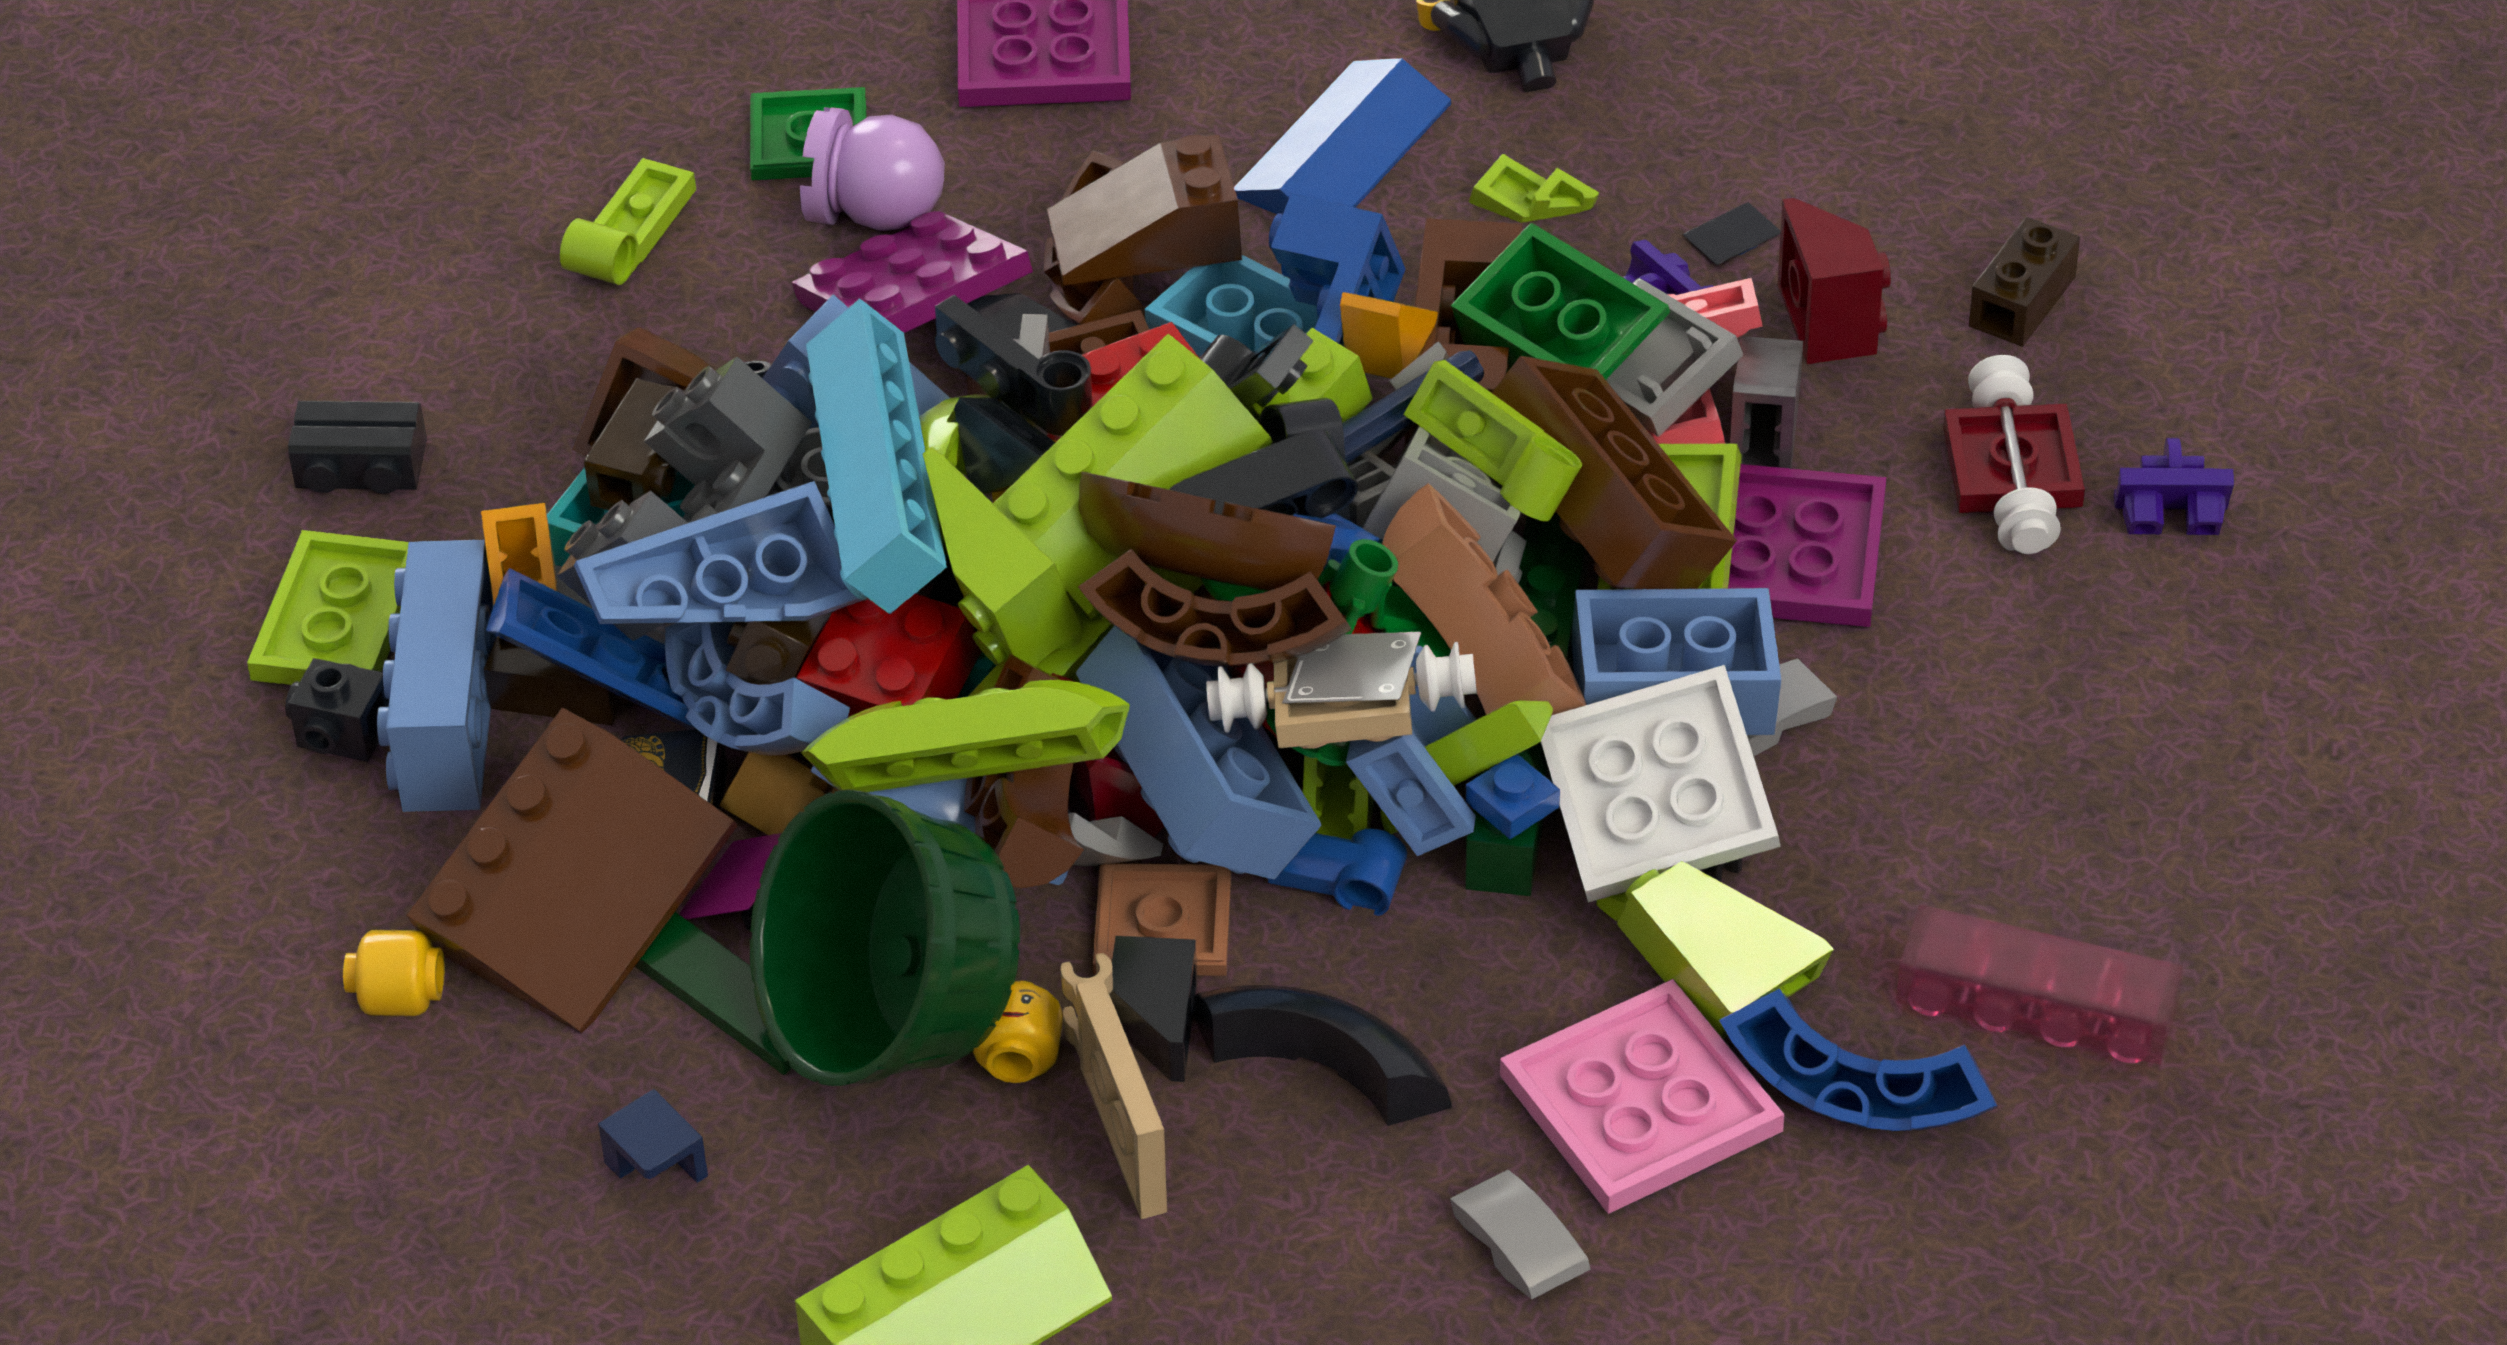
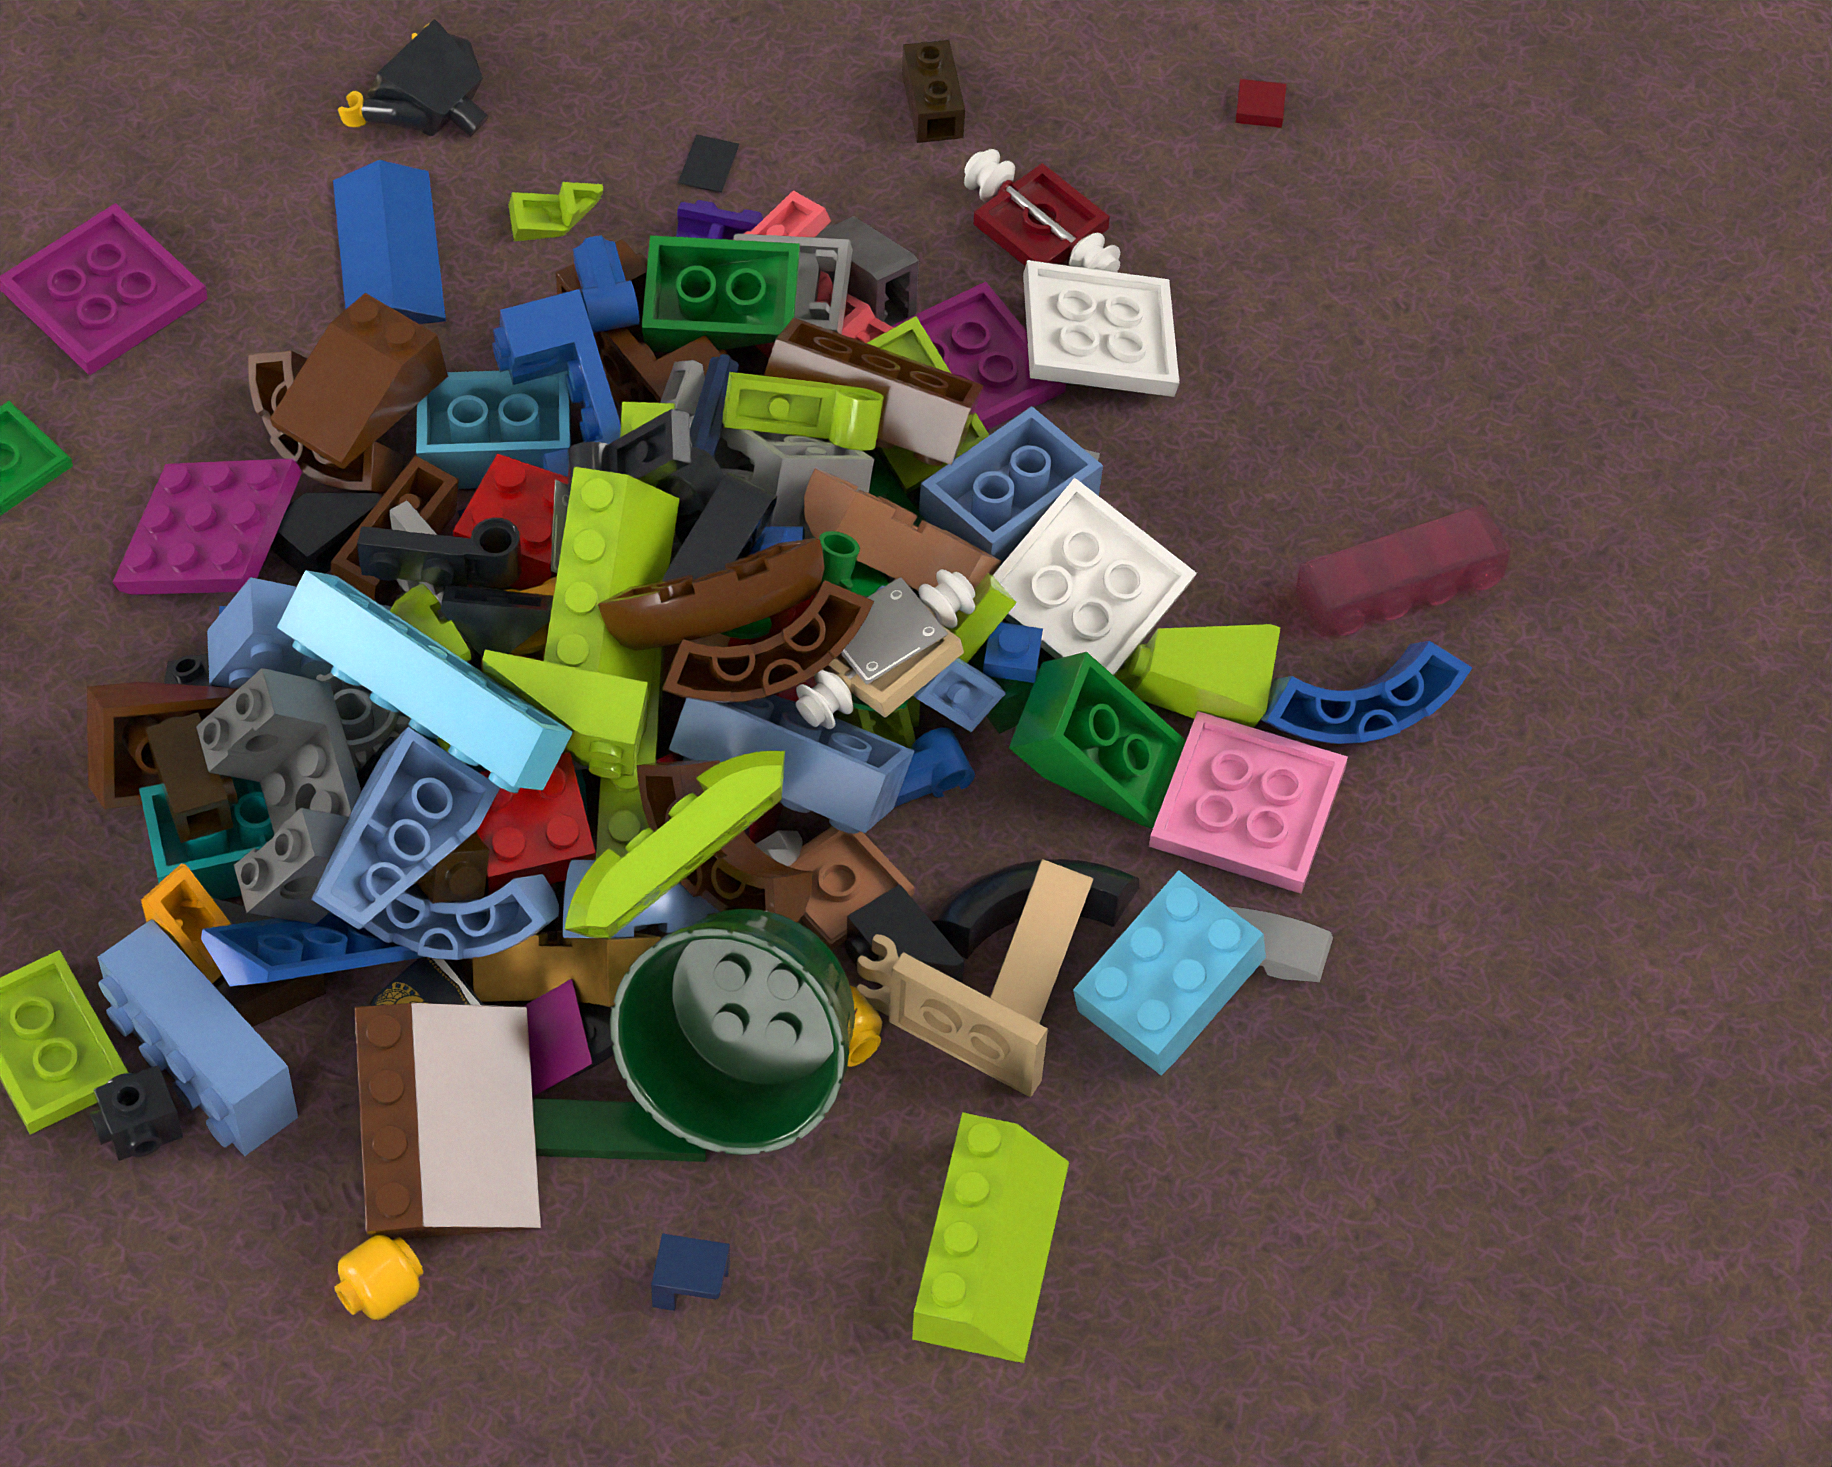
camera: 45 degrees left, 10 degrees up
(873, 171) = (106, 461): lavender tile -> none
(1271, 1077) = (1041, 939): none -> tan tile
(1371, 1183) = (1170, 972): none -> medium azure brick
(1384, 332) = (631, 372): light orange slope -> none
(1441, 254) = (605, 292): none -> blue piece
(1529, 933) = (1097, 738): none -> green slope
(1831, 283) = (828, 161): dark red slope -> none
(1955, 581) = (1100, 328): none -> white plate
(2173, 483) = (1146, 197): dark purple hips -> none
(2382, 479) = (1260, 103): none -> dark red tile

